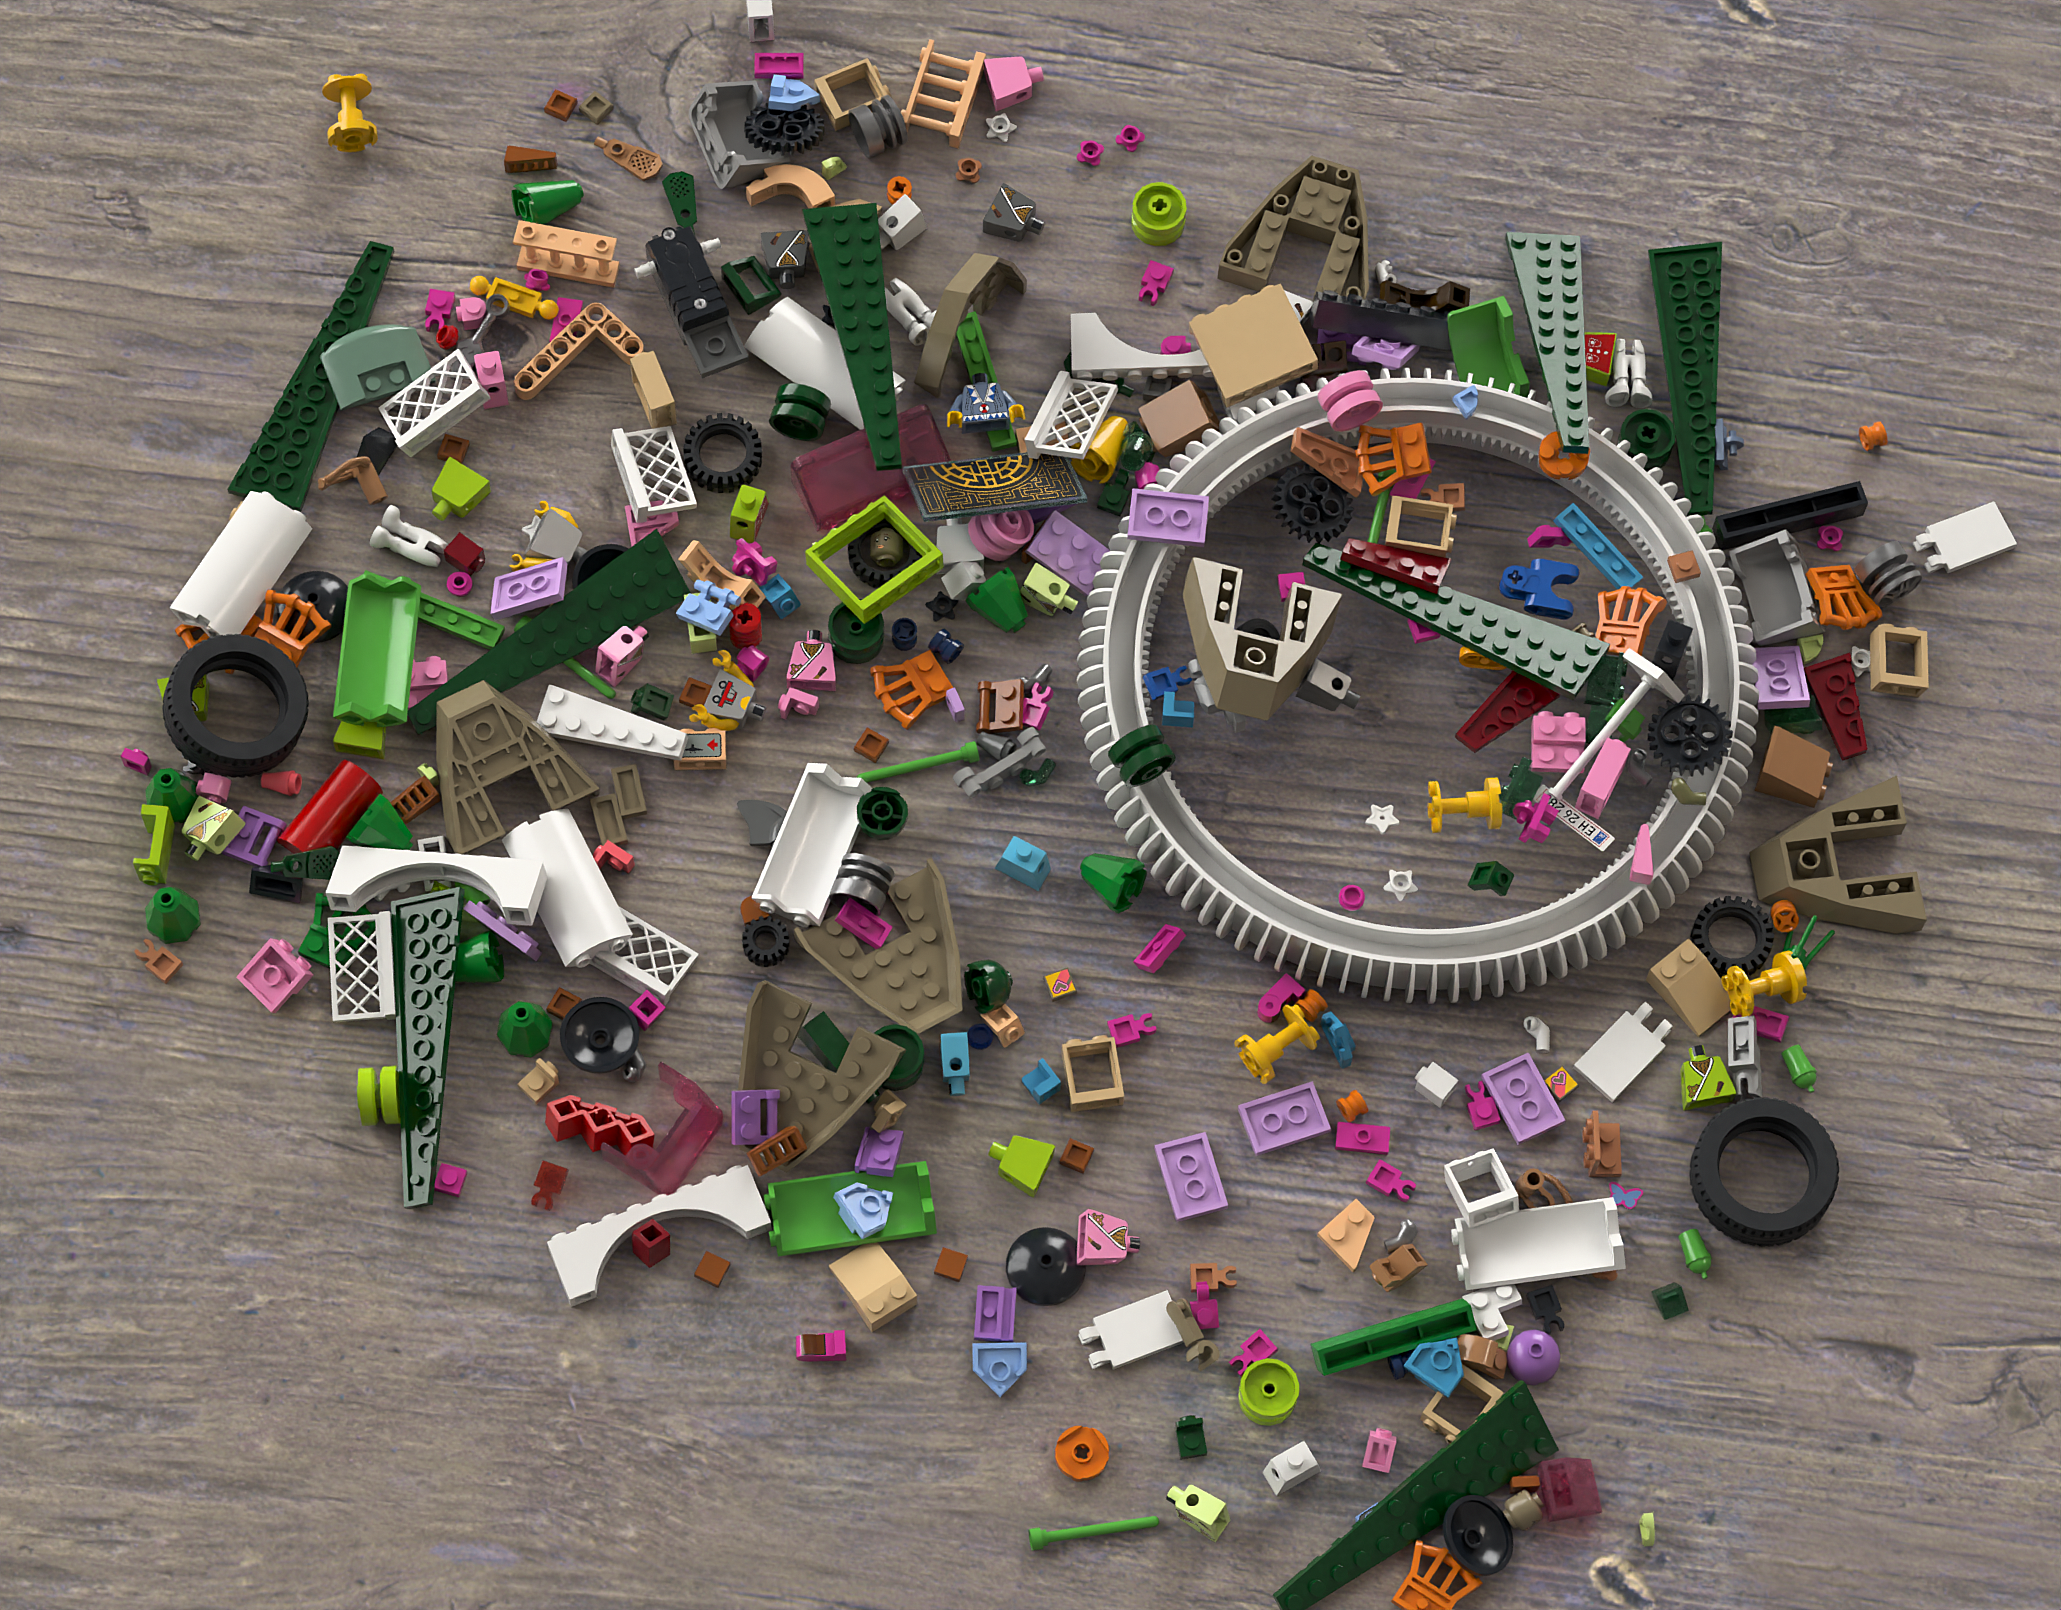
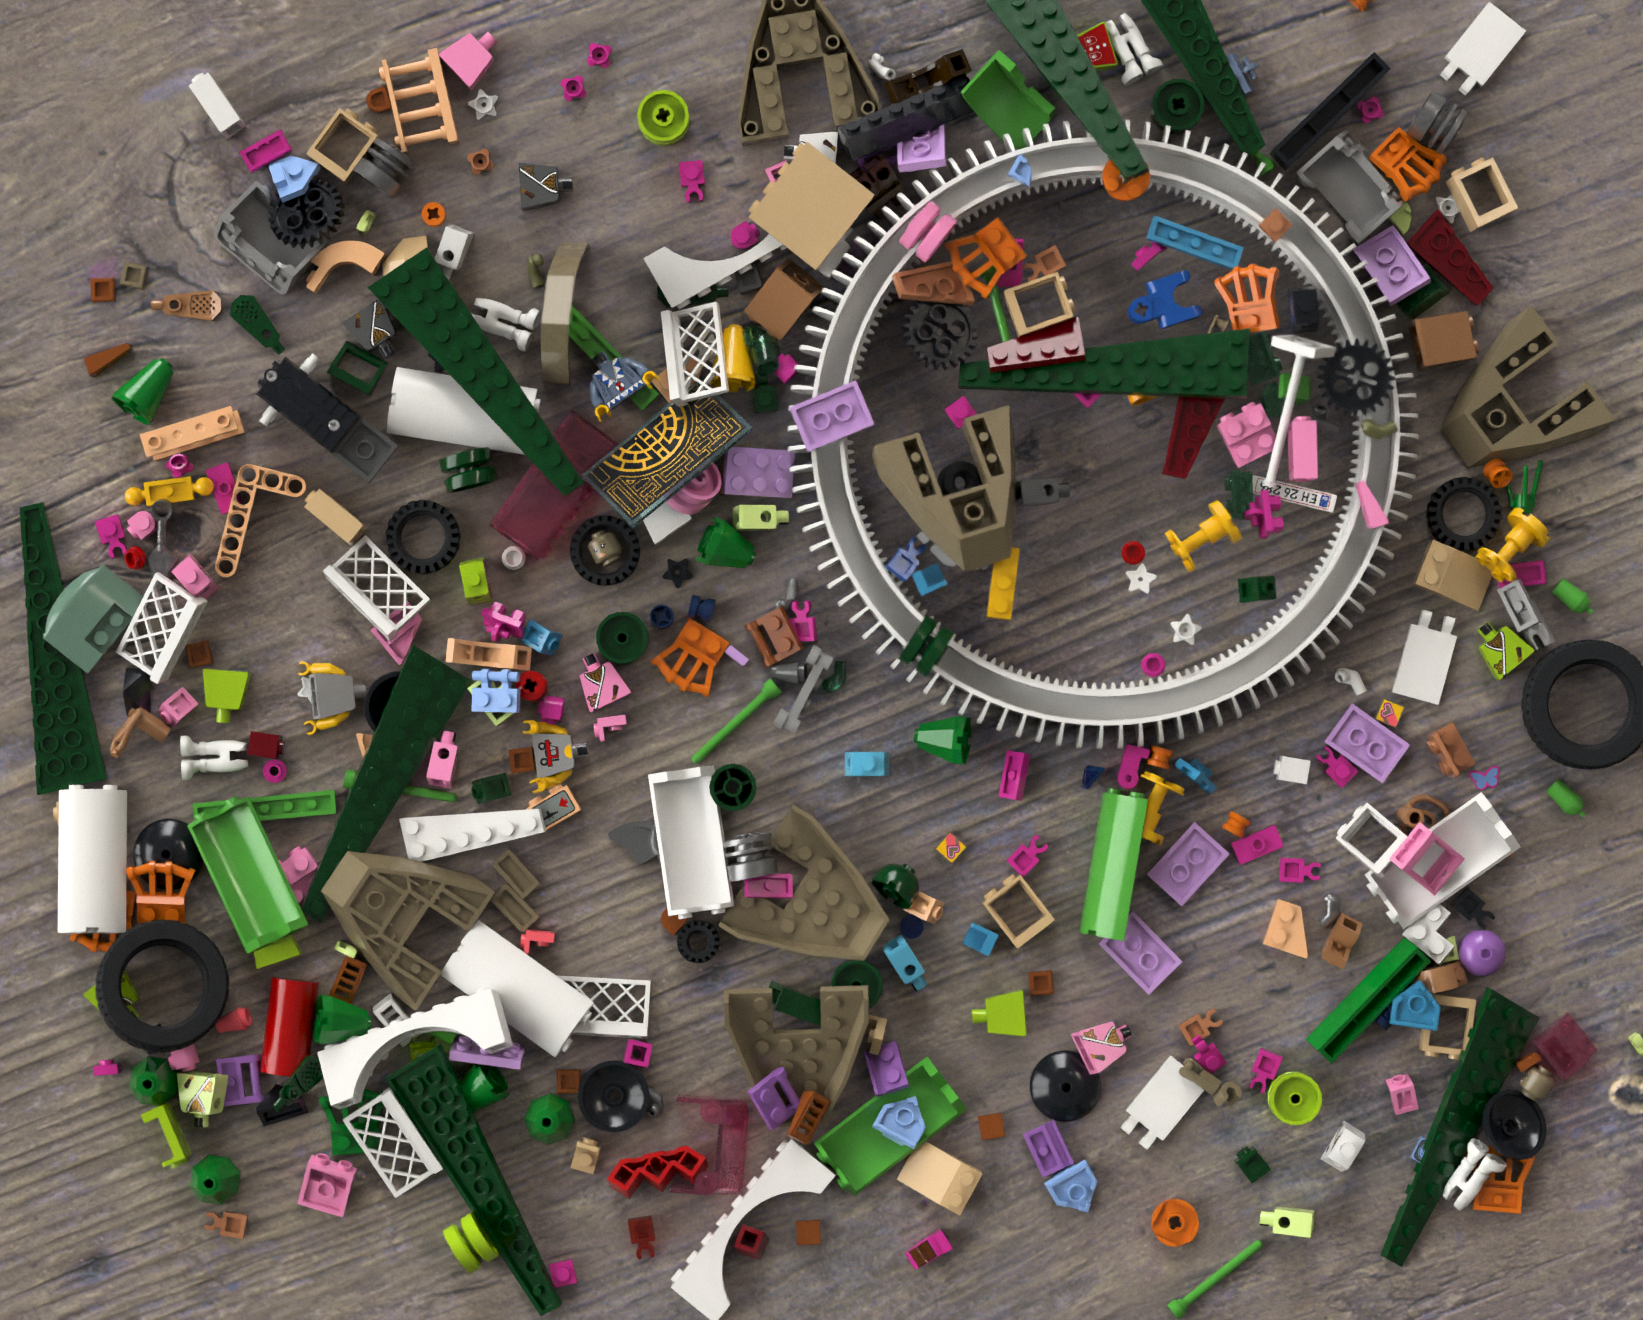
camera: 25 degrees left, 20 degrees up
(404, 481) = (177, 707): none -> bright pink bracket
(529, 588) = (337, 750): lavender plate -> none
(795, 515) = (513, 558): none -> white plate
(871, 745) = (687, 725): dark orange tile -> none
(896, 587) = (640, 588): lime window -> none
(905, 76) = (379, 100): none -> dark orange tile
(963, 580) = (685, 544): white brick -> none
(1210, 1075) = (1113, 864): none -> bright green cylinder
(1235, 986) = (1090, 775): none -> clear blue slope
(1246, 753) = (1003, 587): none -> yellow brick
(1388, 792) = (1133, 552): none -> red plate
(1406, 1562) = (1458, 1179): none -> white piece
(1517, 1203) = (1413, 849): none -> bright pink window
(1670, 1300) = (1564, 846): clear green slope -> none

